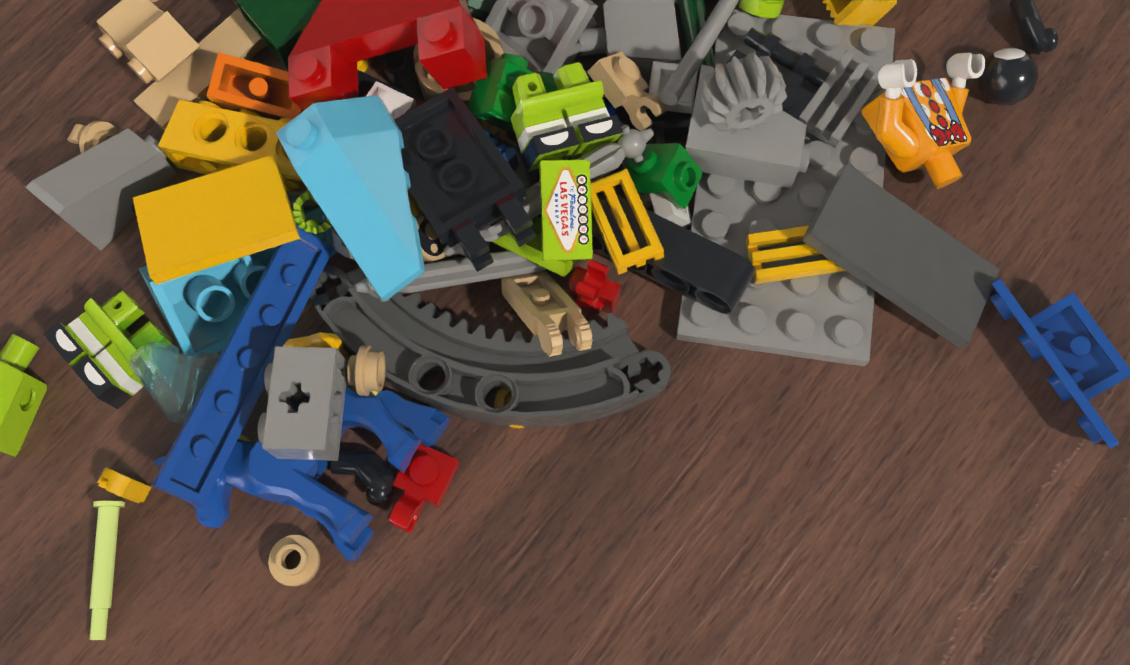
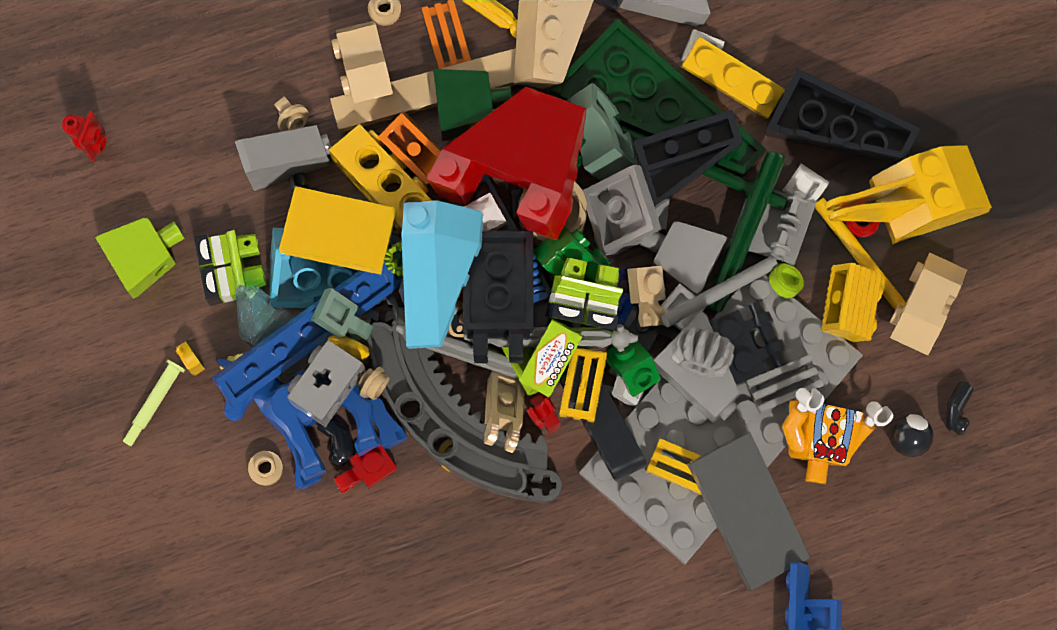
camera: 30 degrees right, 5 degrees up
(274, 316) = (338, 316): none -> sand green plate

